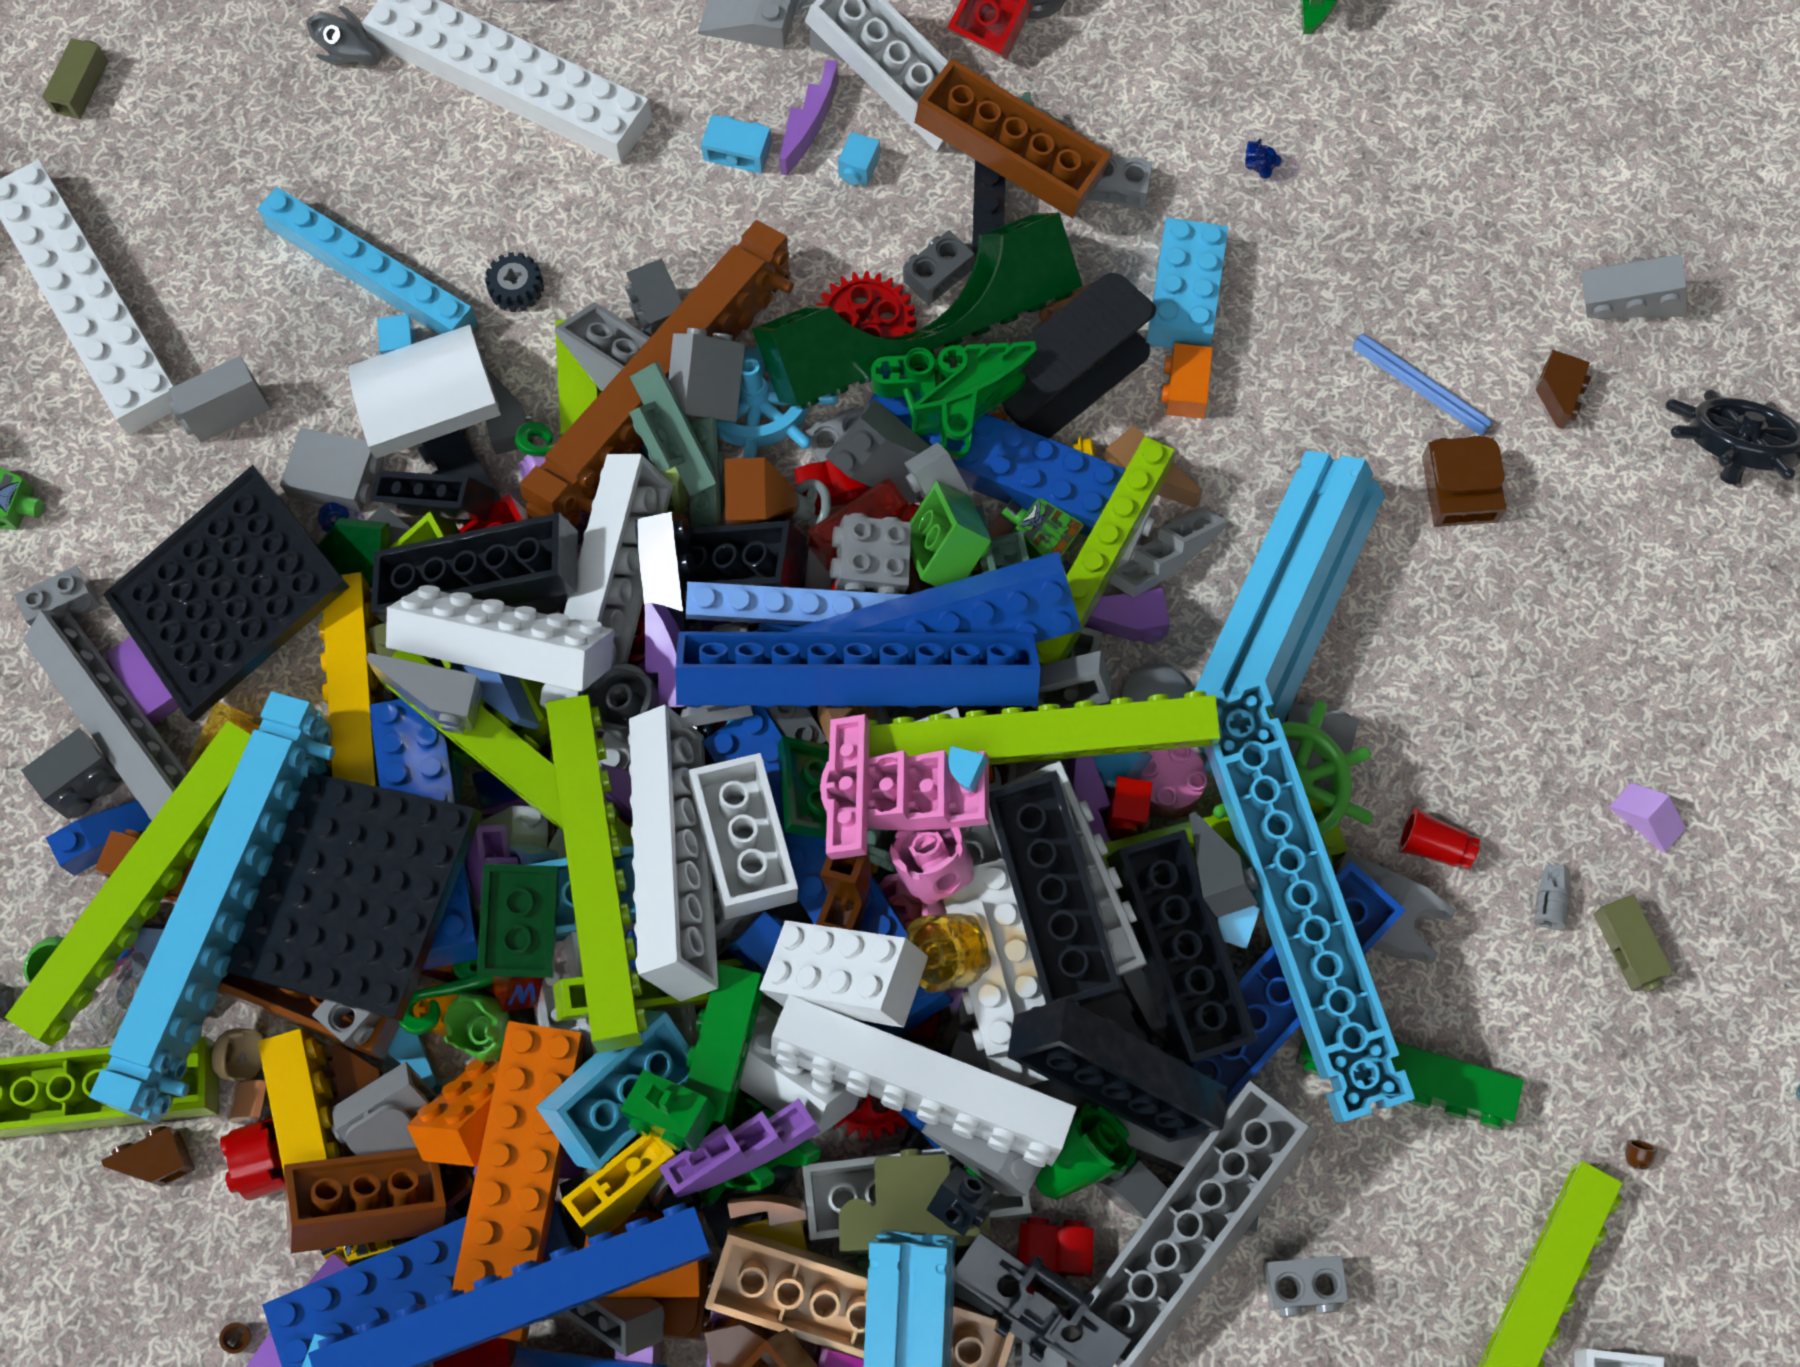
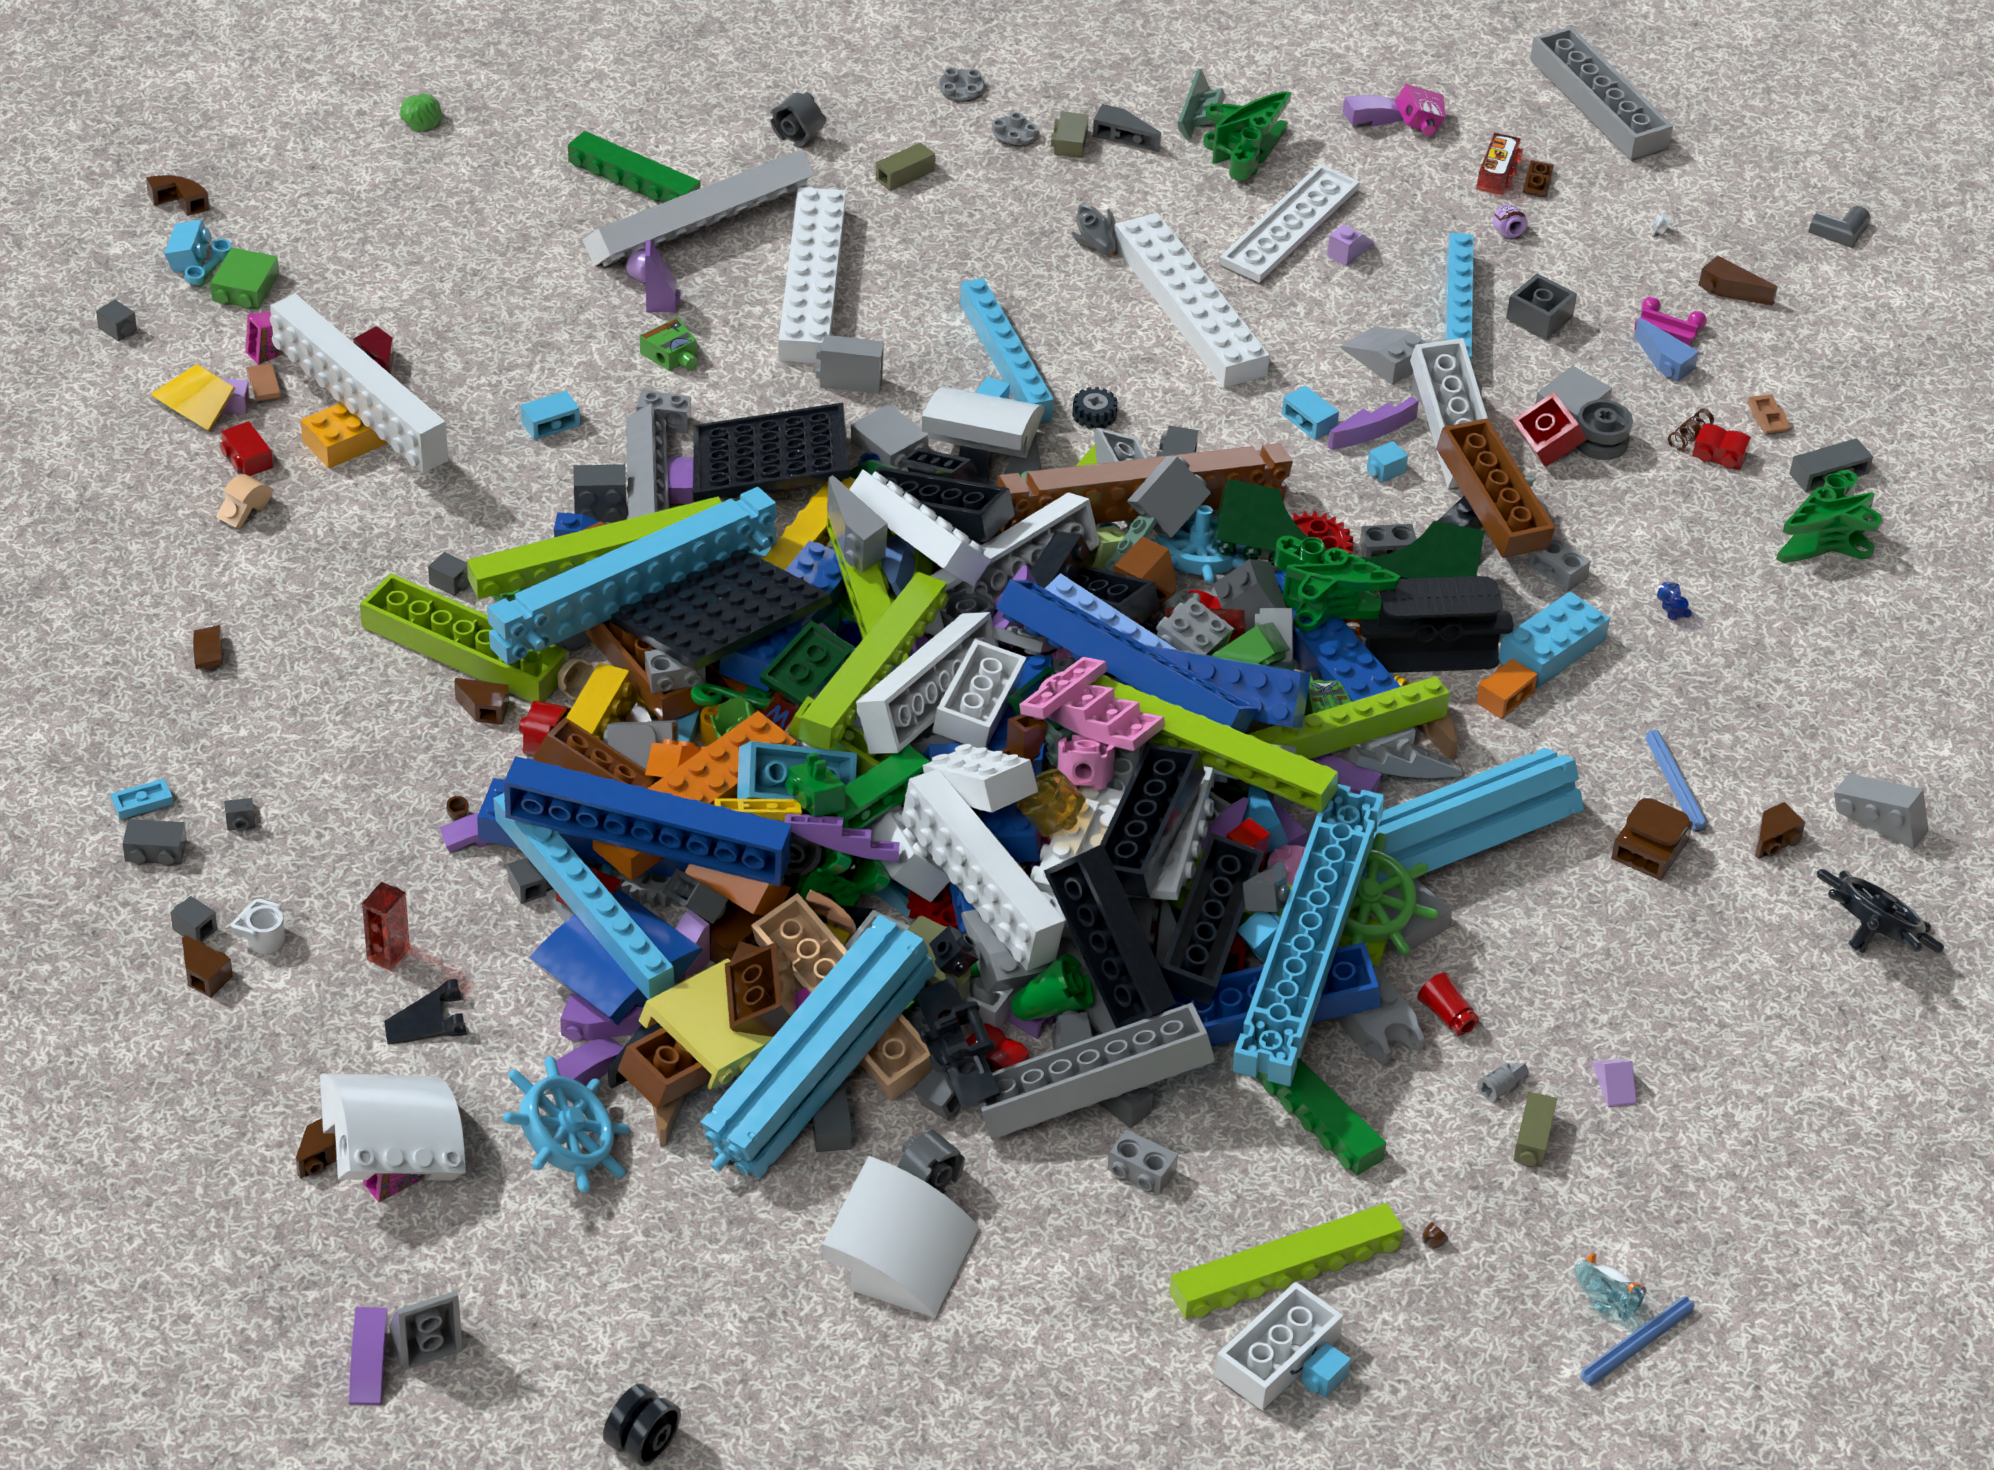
camera: 30 degrees right, 25 degrees down
(247, 1101) = (569, 696): nougat slope -> none
(668, 431) = (1117, 505): sand green bracket -> none
(966, 767) = (1145, 715): medium azure tile -> none

